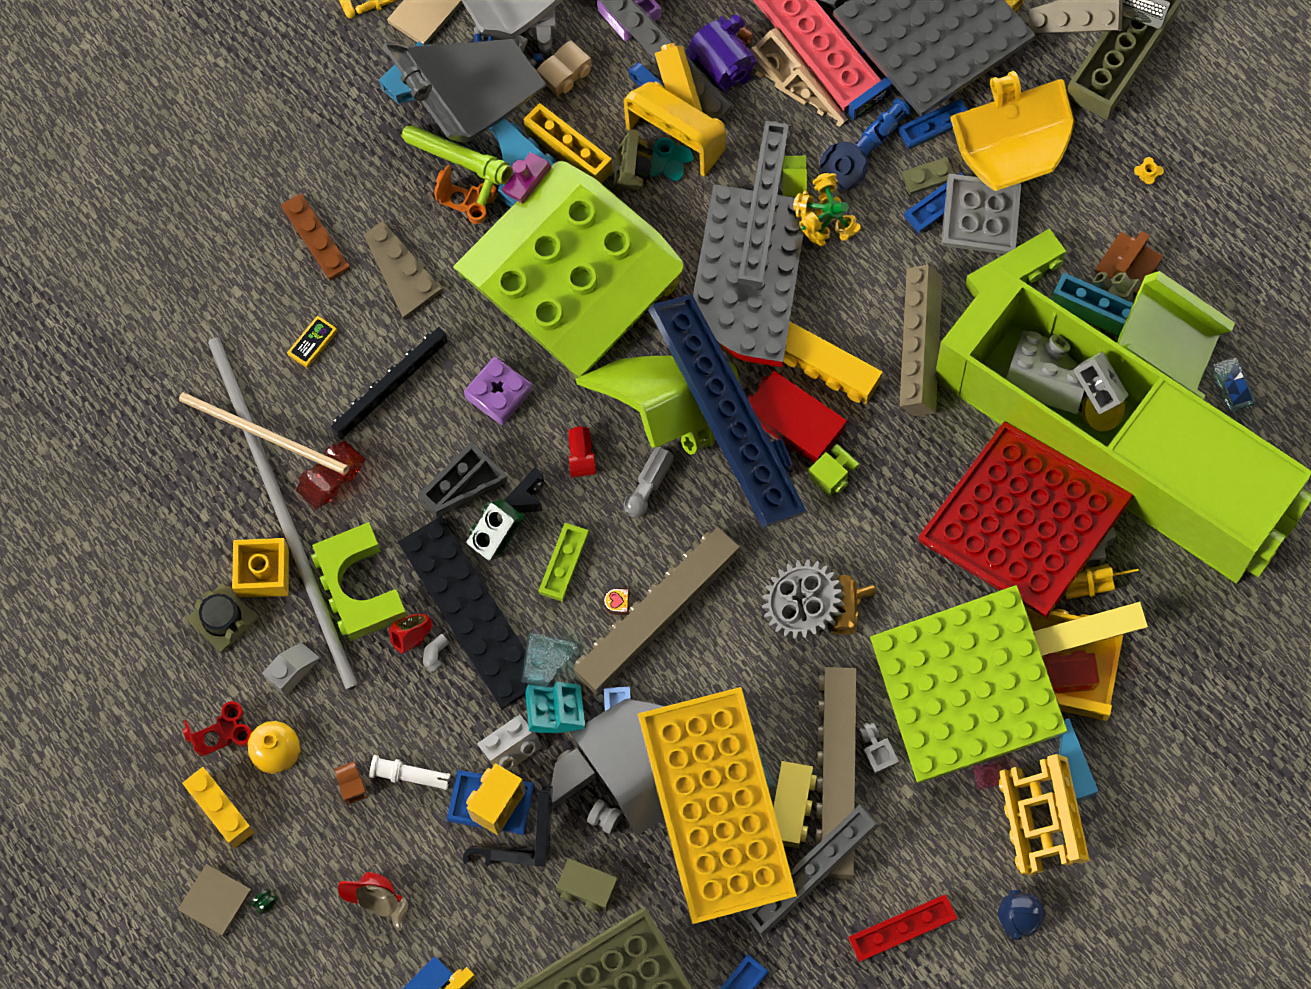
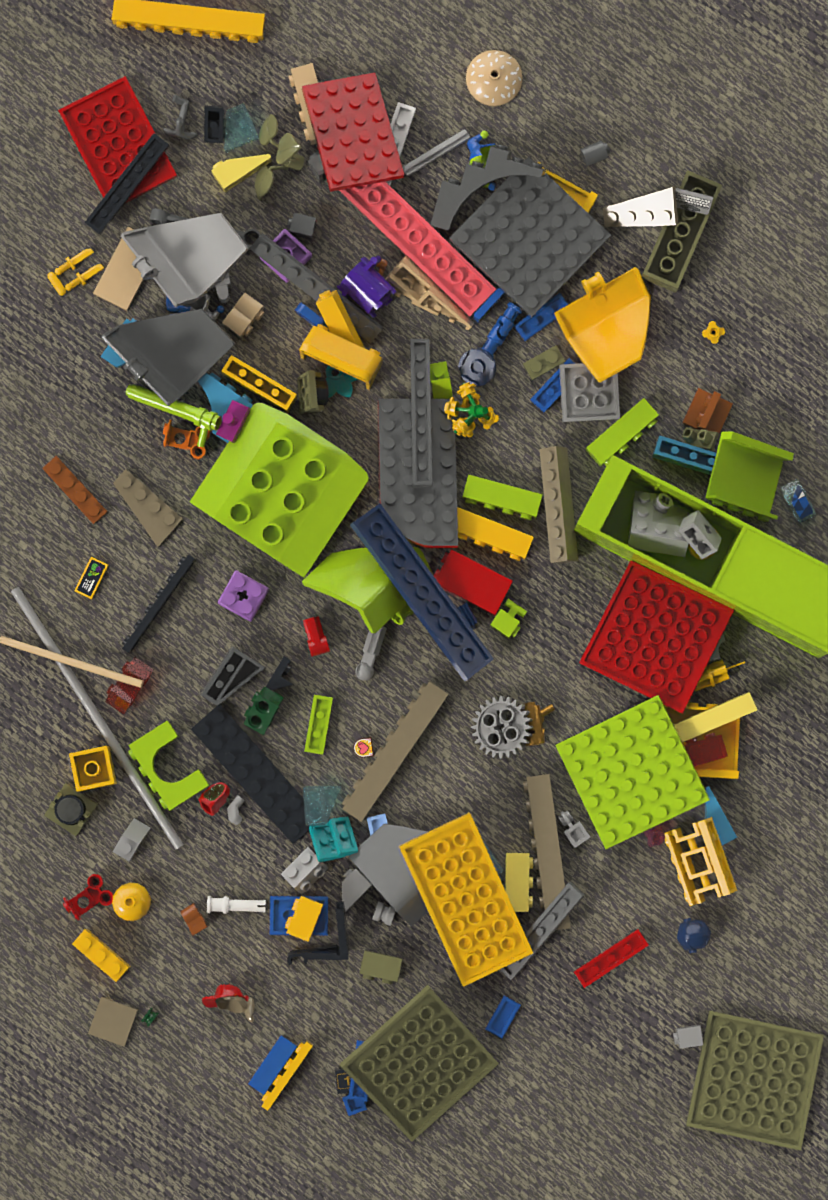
camera: 15 degrees left, 15 degrees up
(849, 321) = (501, 496): none -> lime brick

